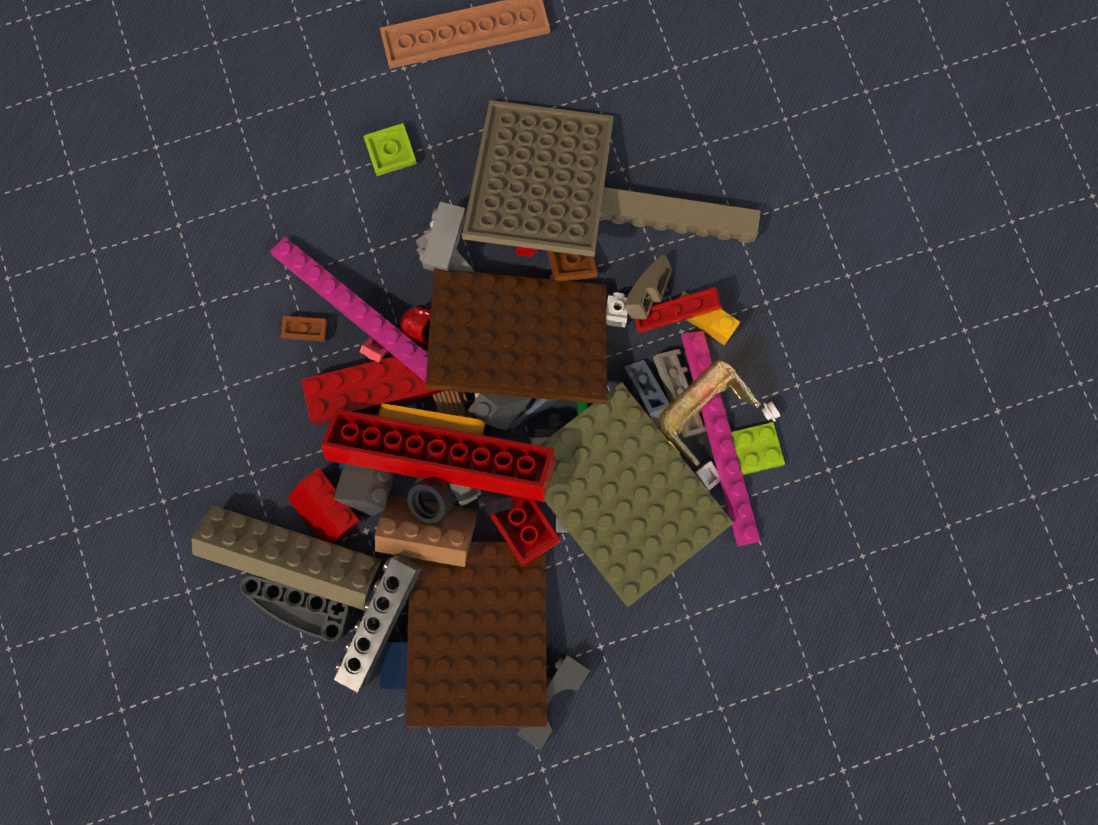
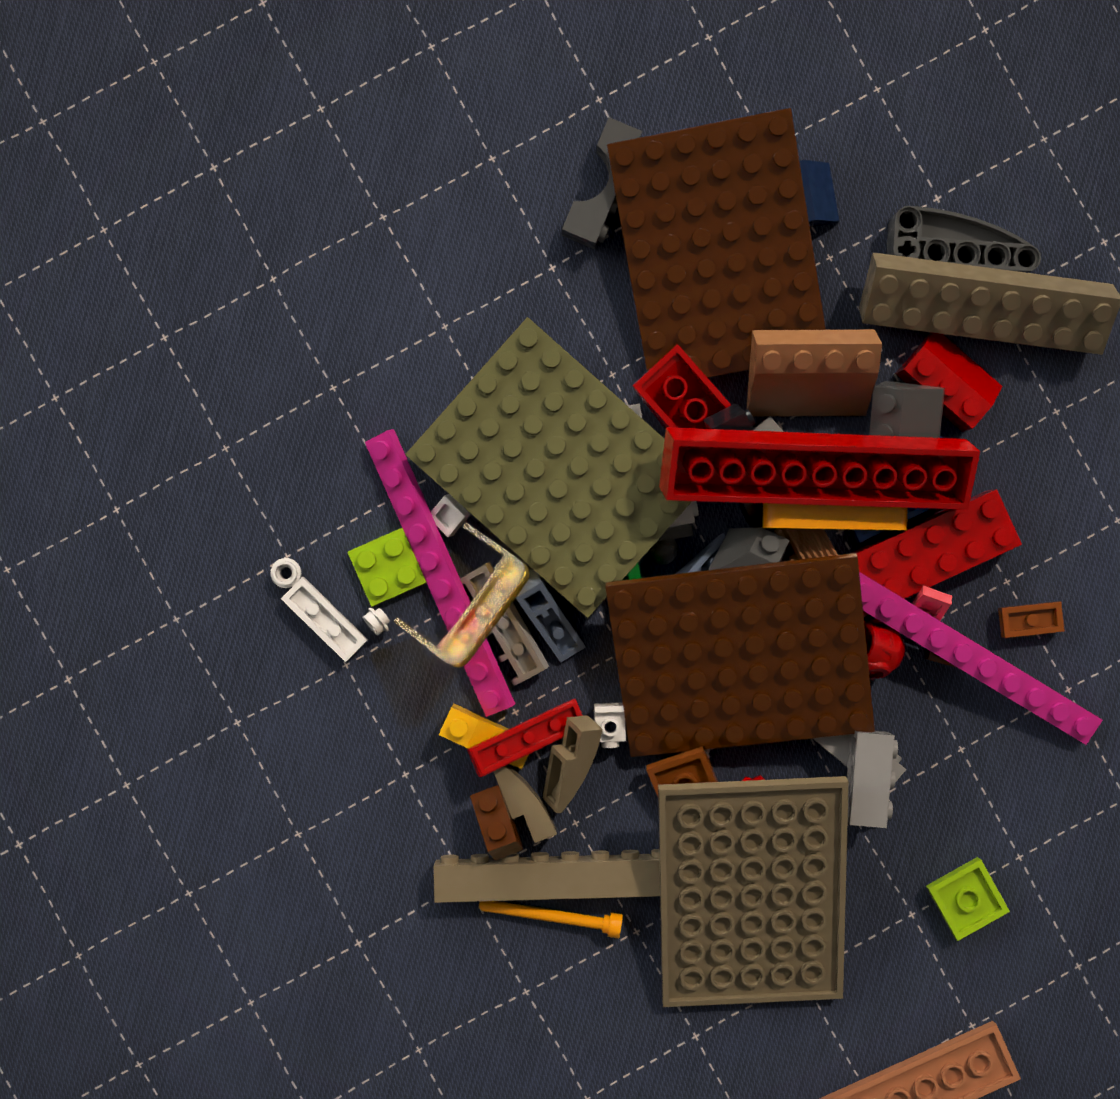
camera: 170 degrees right, 10 degrees up
(347, 672) = (828, 305): dark grey brick -> none
(418, 507) = (828, 394): black tyre -> none
(641, 176) = (609, 925): none -> light orange piece
(686, 268) = (523, 800): none -> dark tan slope
(708, 256) = (496, 823): none -> reddish brown brick
(808, 419) = (324, 619): none -> white plate
(837, 457) = (276, 572): none -> white plate

